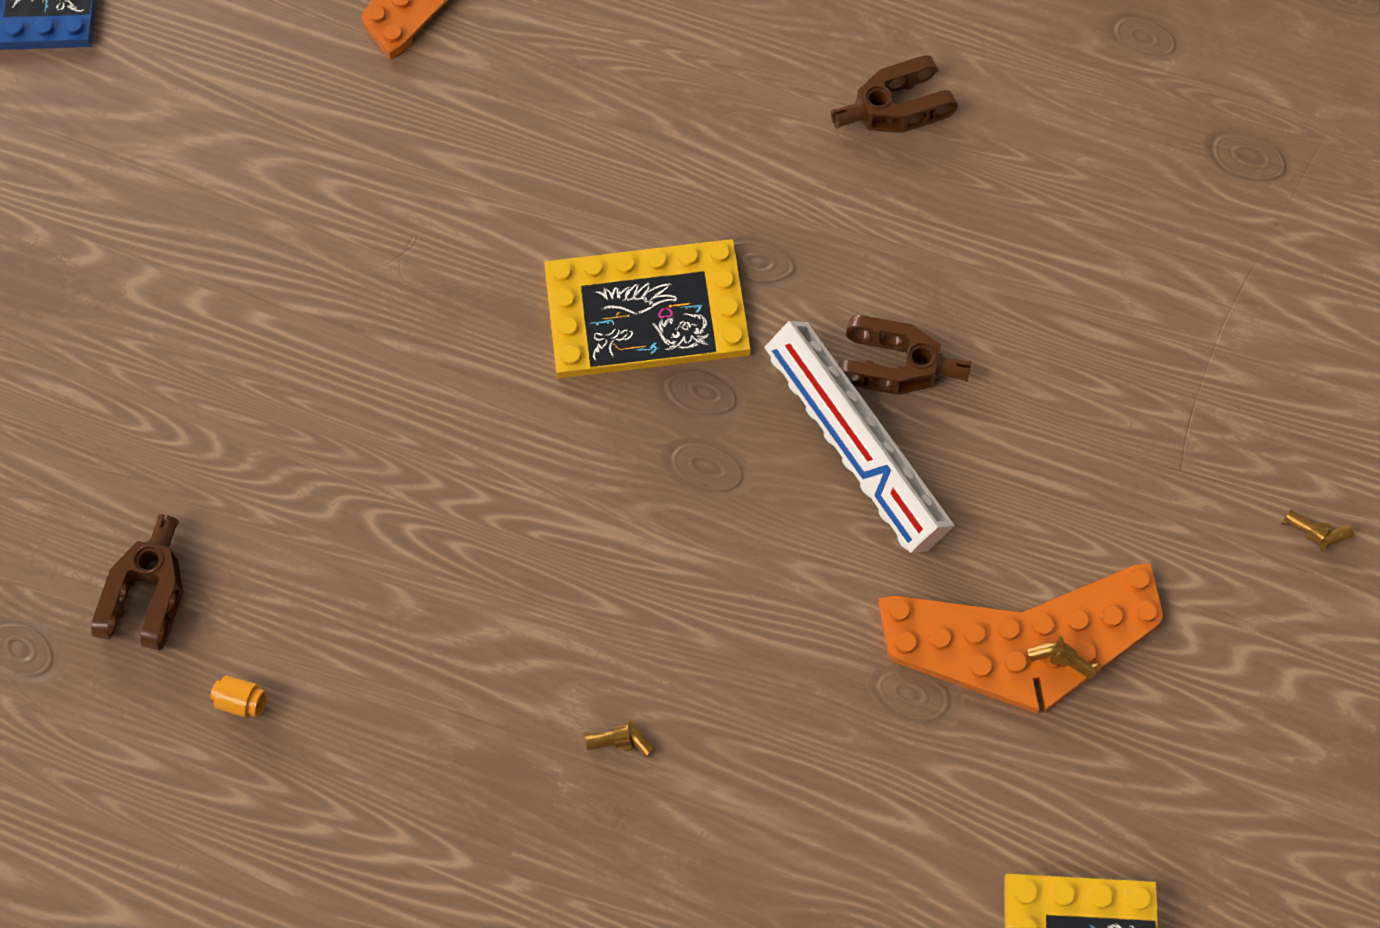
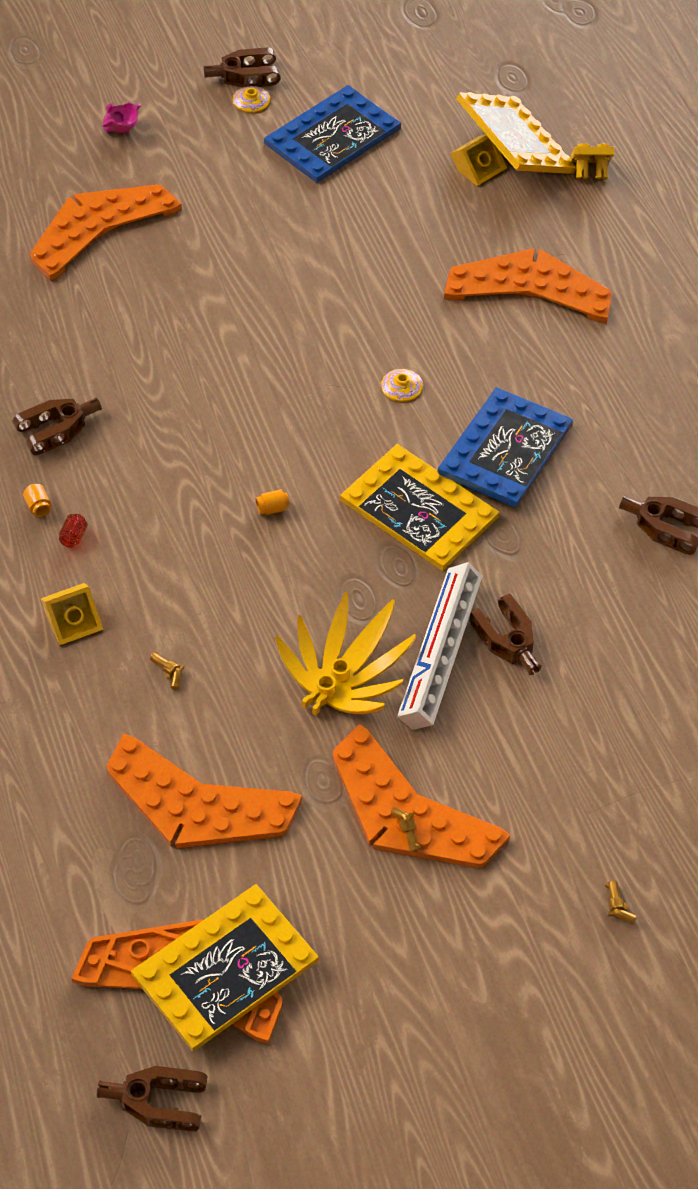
camera: 45 degrees right, 10 degrees down
(323, 691) = (72, 530): none -> clear red brick
(442, 785) = (72, 613): none -> yellow slope
(469, 202) = (402, 385): none -> dish
(499, 448) = (272, 502): none -> light orange brick
(654, 165) = (505, 447): none -> plate
(799, 577) = (336, 678): none -> yellow plant
(807, 870) = (204, 811): none -> orange wing

